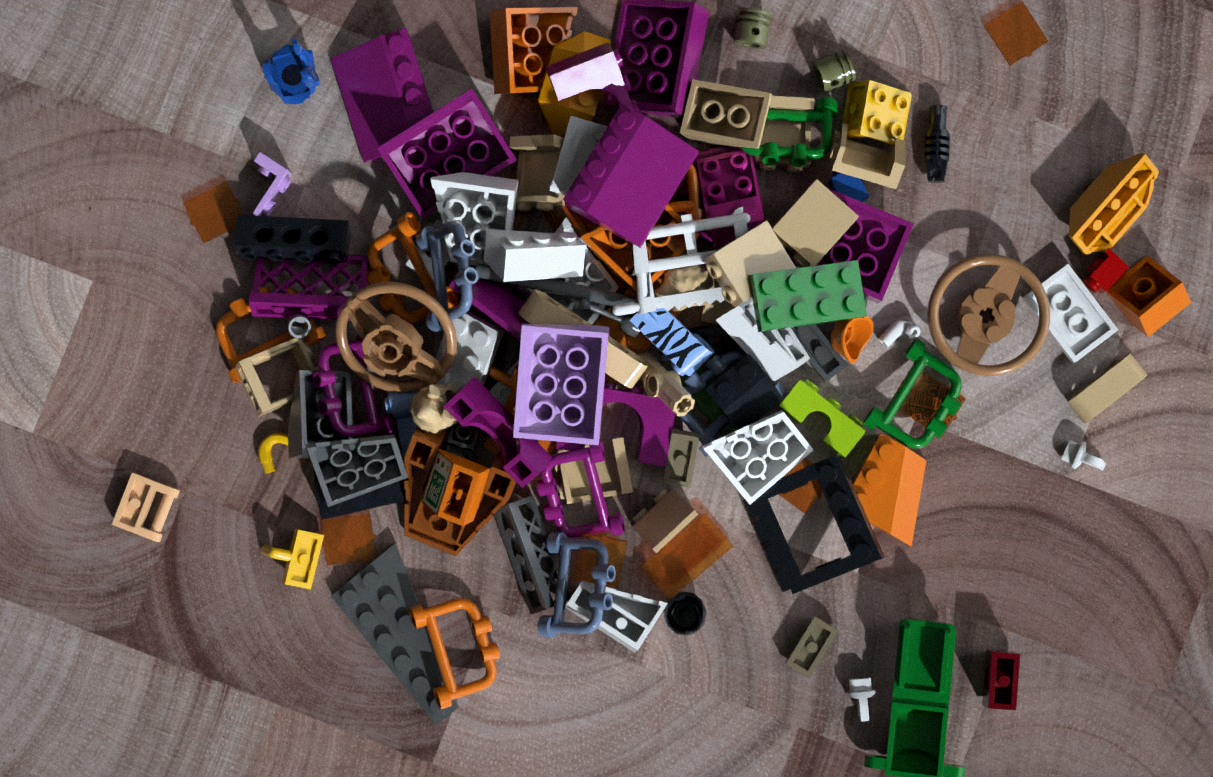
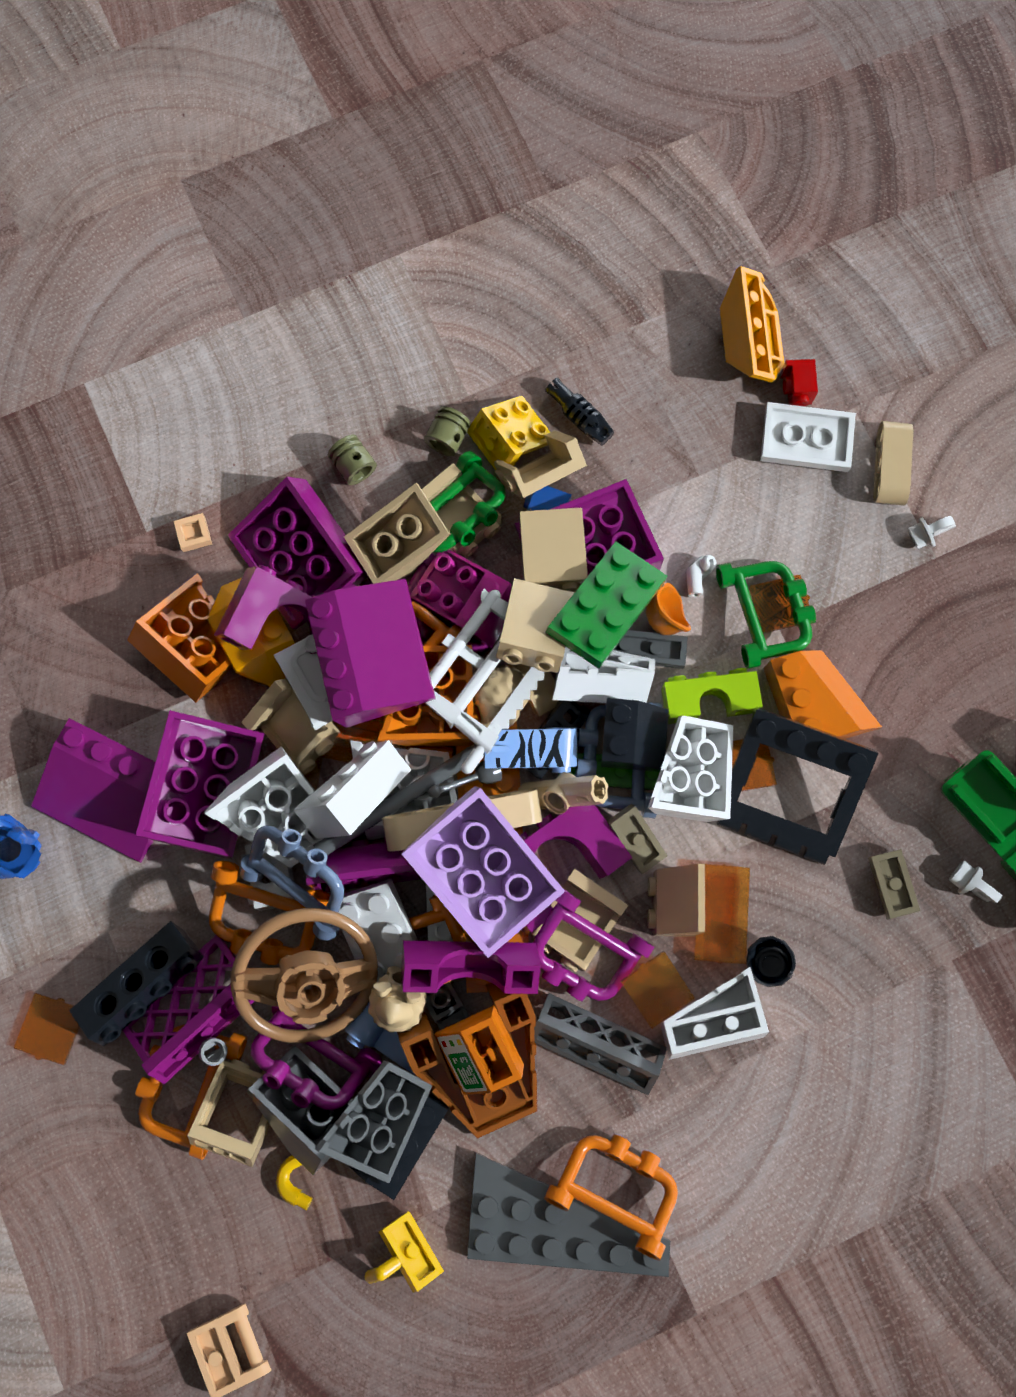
camera: 50 degrees left, 10 degrees down
(282, 181) = (83, 947): lavender bracket -> none
(349, 539) = (434, 1192): clear orange piece -> none
(558, 543) = (696, 1022): sand blue bar -> none
(995, 298) = (744, 480): medium nougat piece -> none
(1016, 33) = (553, 283): clear orange piece -> none
(1148, 296) = (850, 368): orange slope -> none

